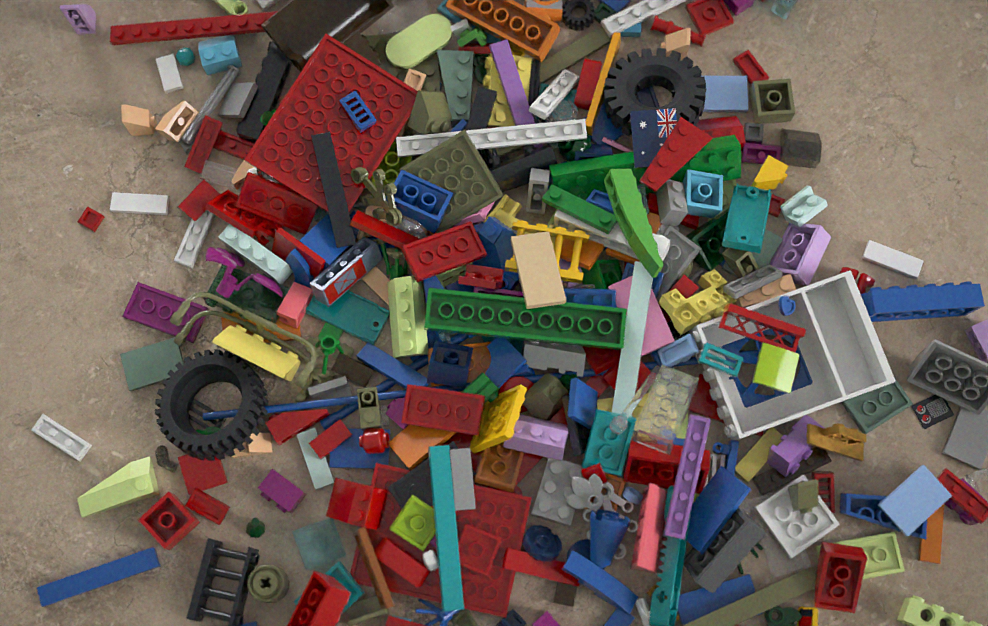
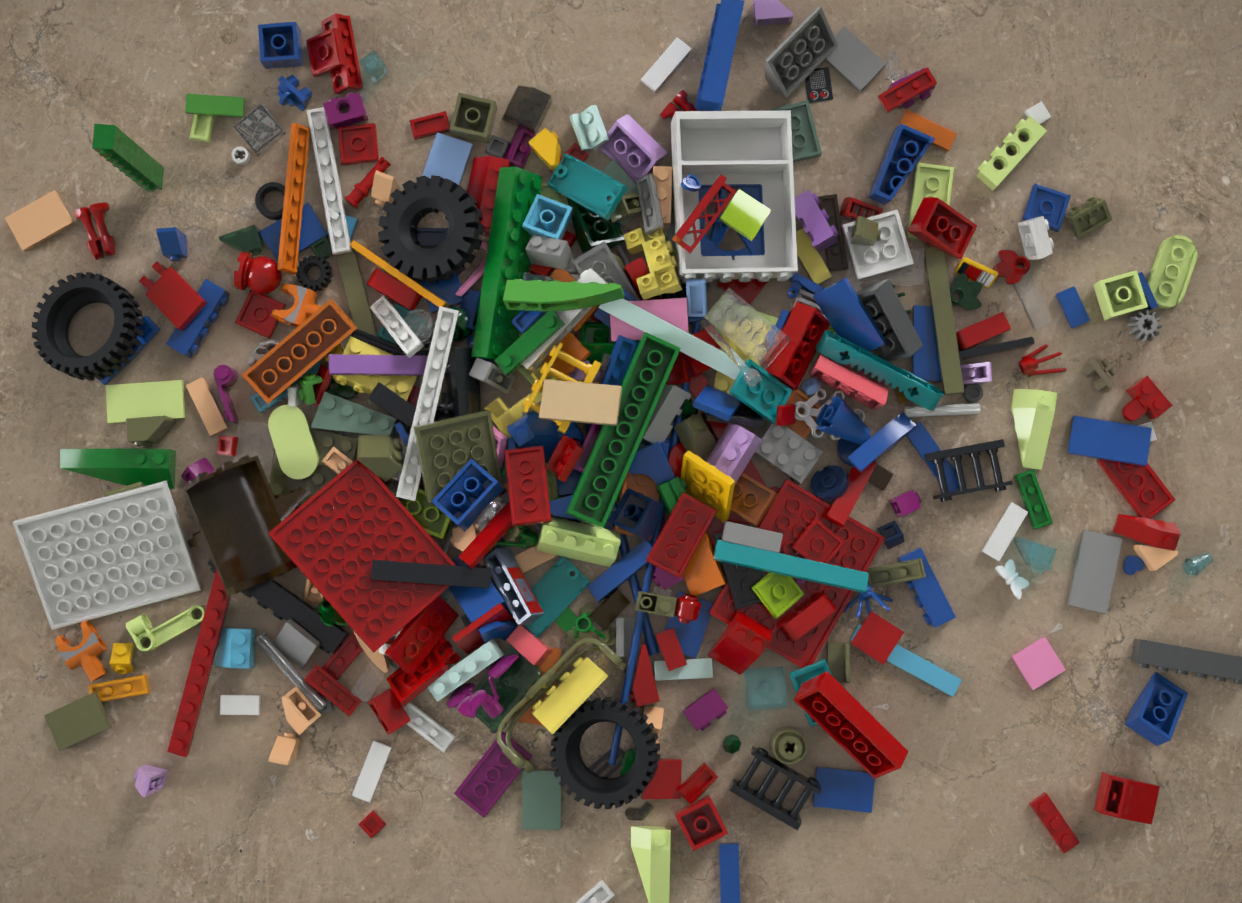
camera: 70 degrees left, 10 degrees up
(185, 56) = (227, 683): teal tile -> none
(360, 126) = (377, 526): blue slope -> none
(373, 568) = (808, 644): dark orange tile -> none
(392, 215) = (476, 525): olive plant -> none
(430, 560) = (815, 589): white tile -> none
(584, 490) = (798, 429): light grey plate -> none
(650, 132) = (482, 245): dark blue sticker -> none
(676, 151) = (502, 228): red wing -> none
(687, 477) = (817, 331): medium lavender tile -> none
(704, 354) = (732, 249): teal tile -> none
(838, 440) = (823, 183): pearl gold bracket -> none
(914, 500) = (899, 135): light blue tile -> none

